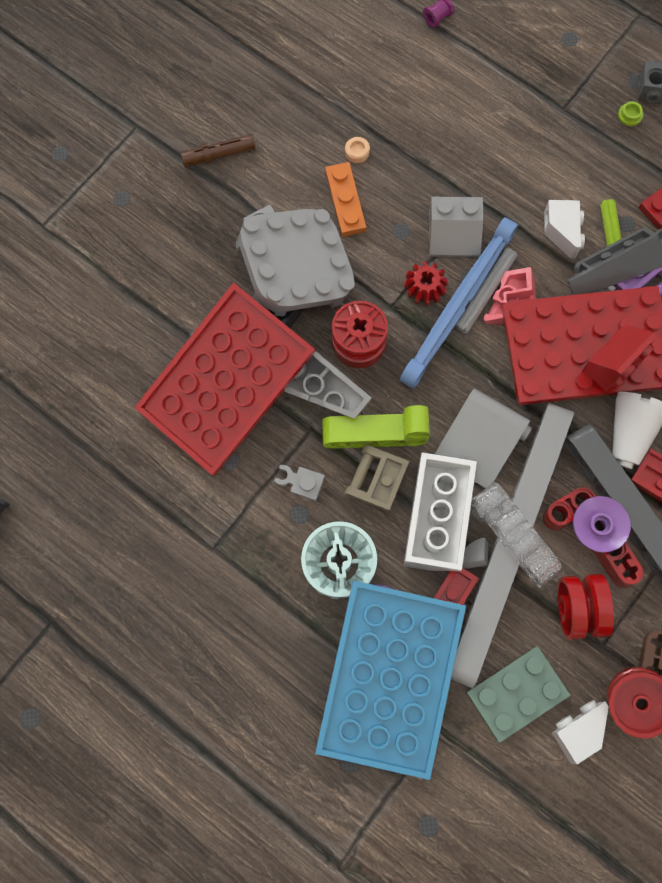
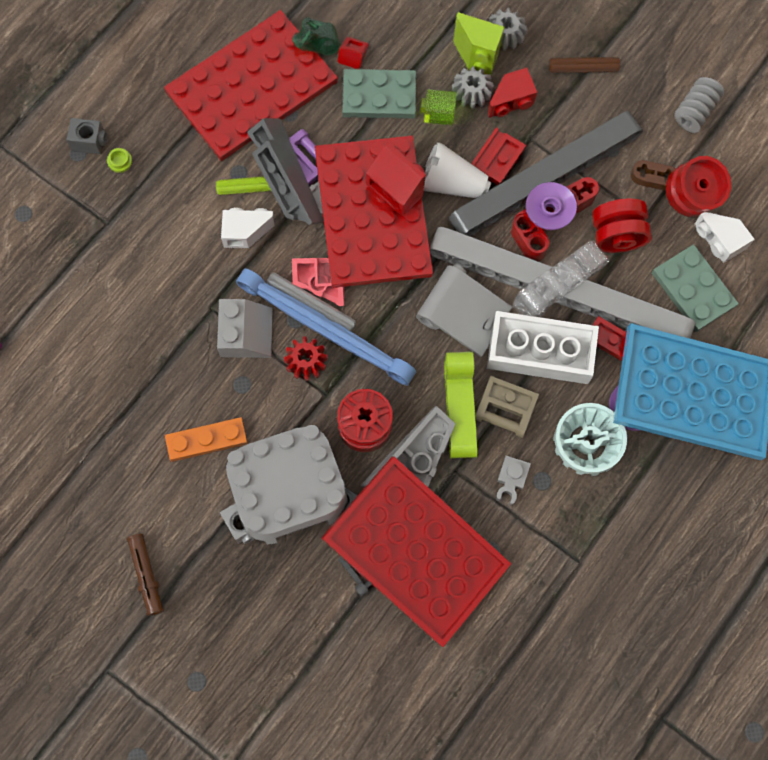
camera: 95 degrees left, 0 degrees up
(357, 150) = (148, 427): light nougat tile -> none
(476, 554) = (574, 315): light grey tile -> none

